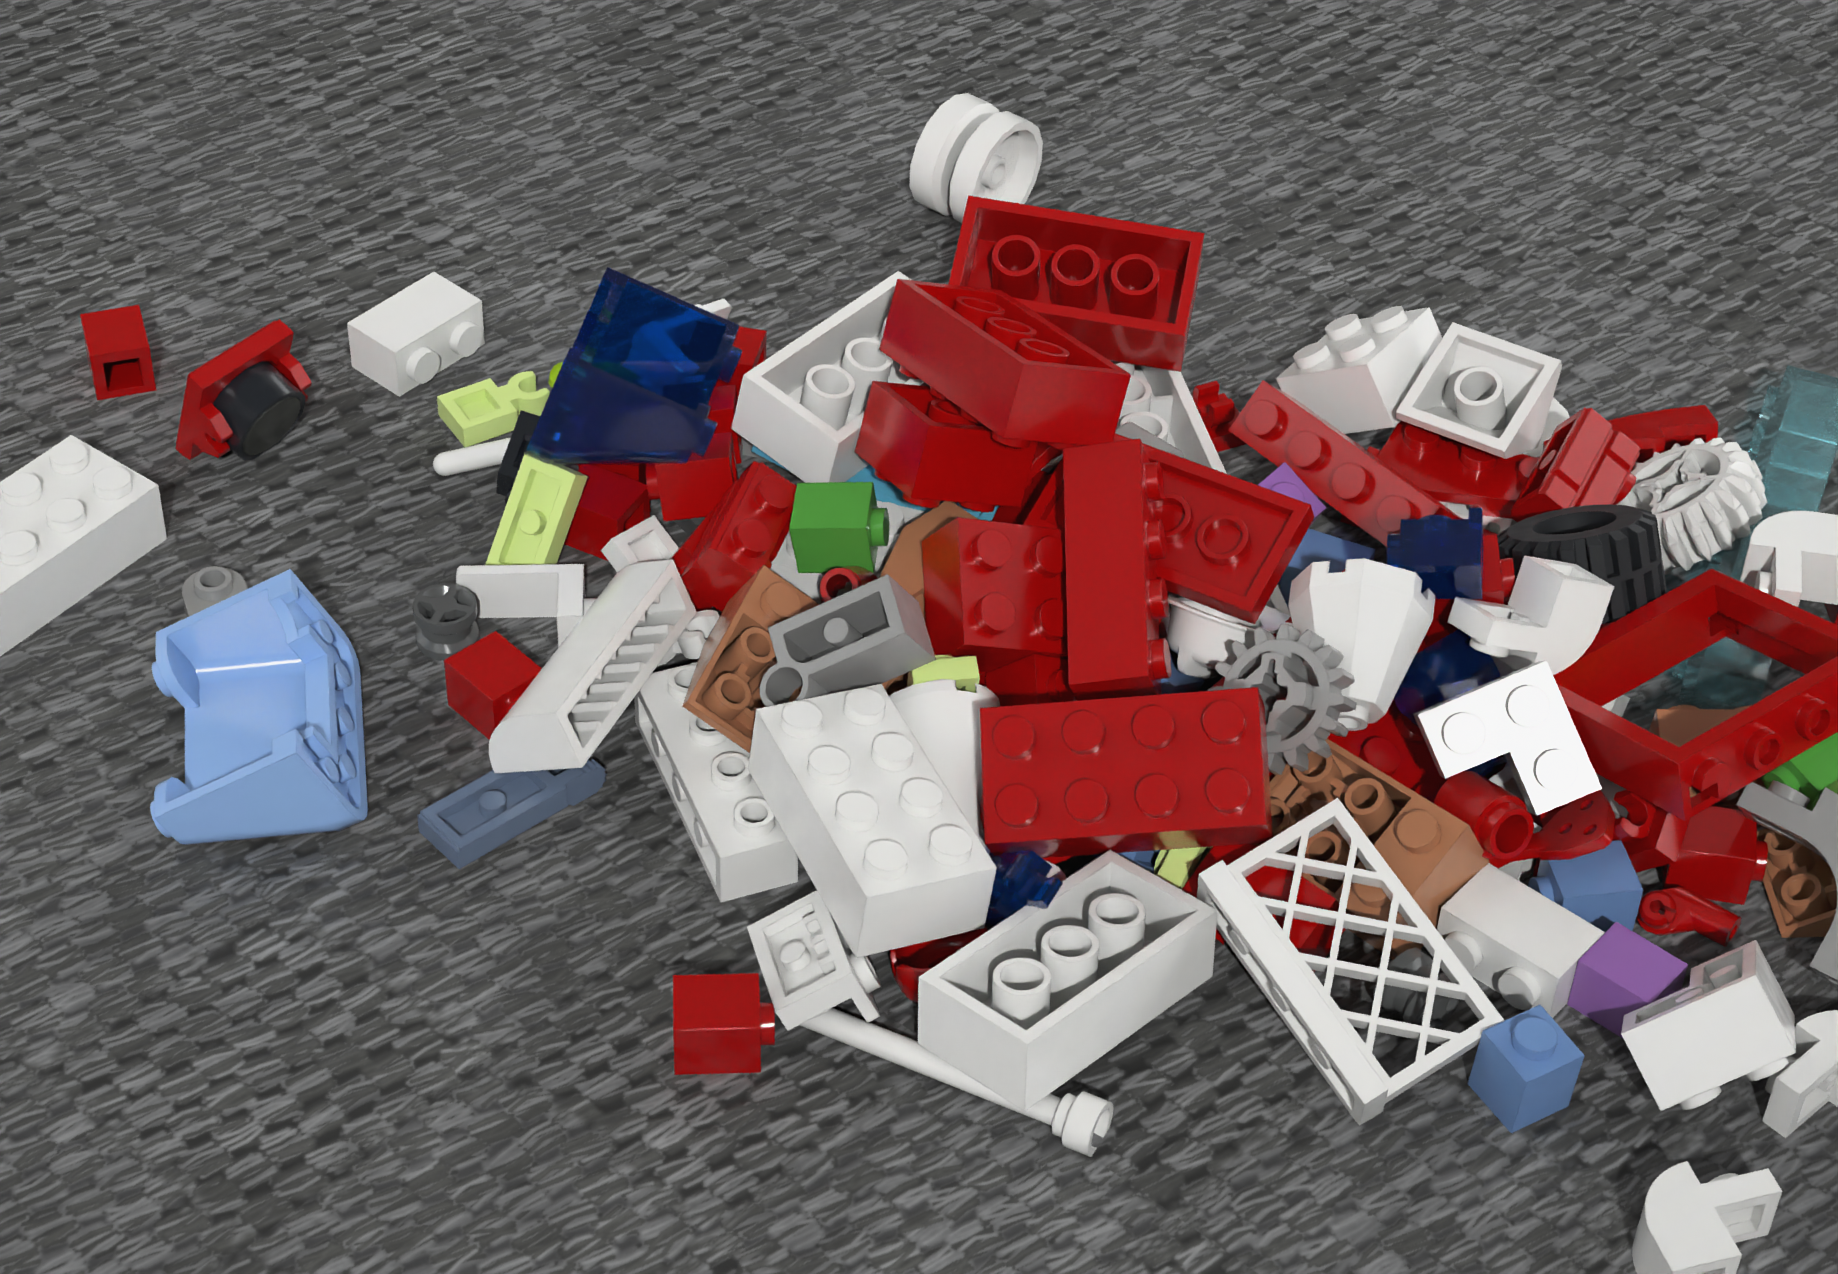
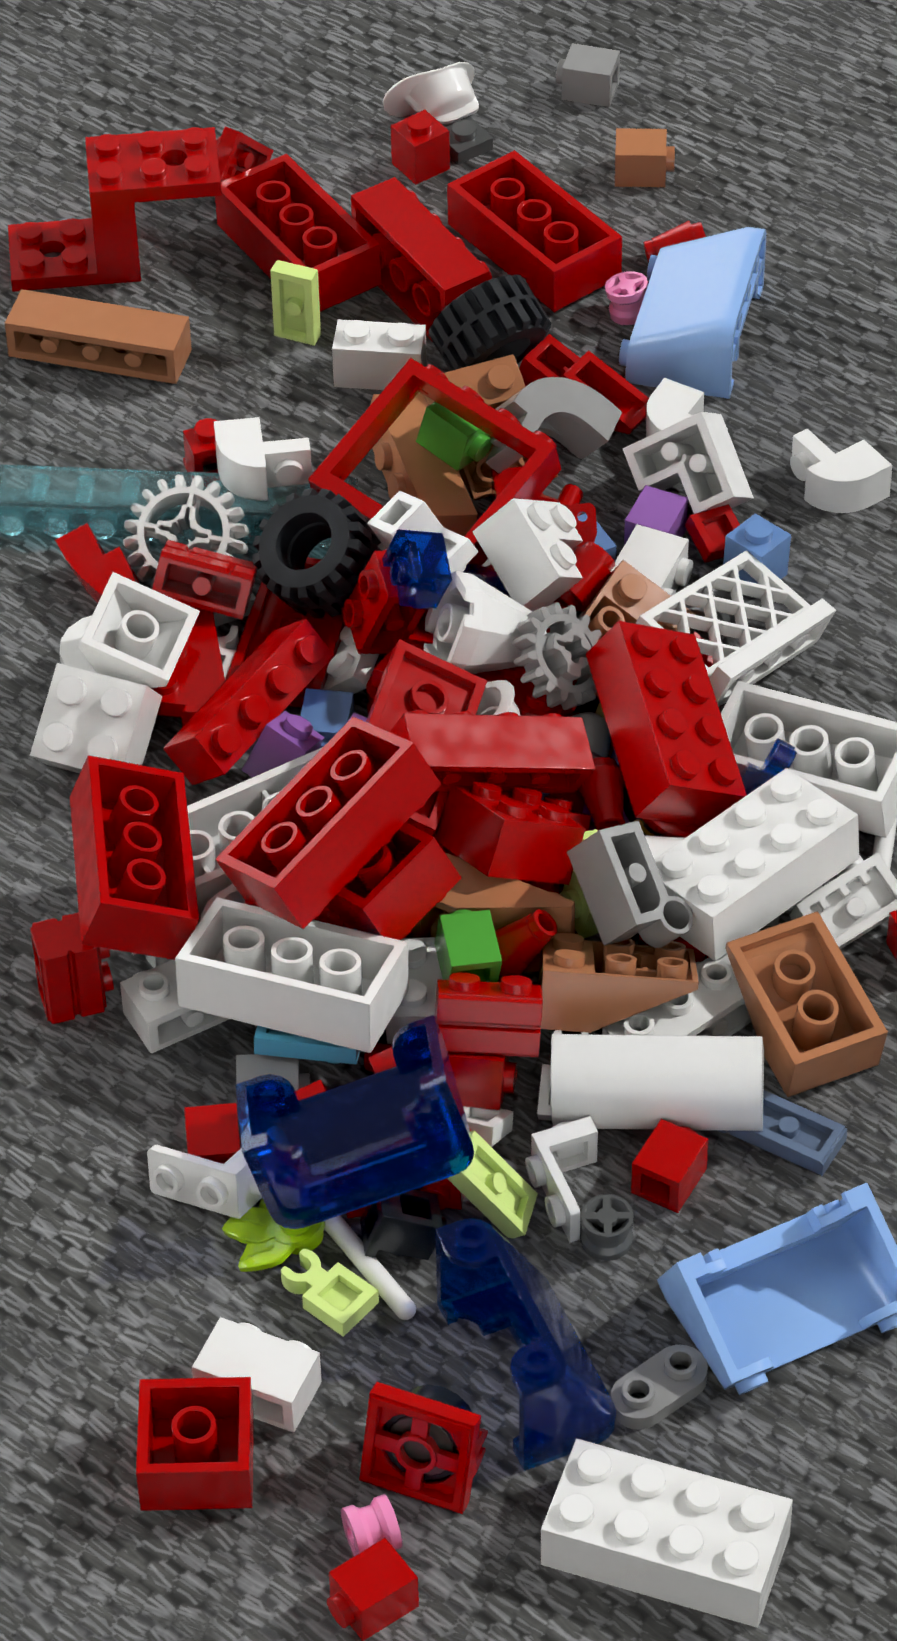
camera: 105 degrees left, 5 degrees up
(179, 356) = (371, 1524): none -> bright pink wheel
(313, 492) = (556, 1382): none -> clear blue windscreen
(347, 261) = (195, 1443): none -> red brick
(641, 839) = (806, 1004): none -> nougat slope
(1605, 1051) = (710, 529): none -> red plate

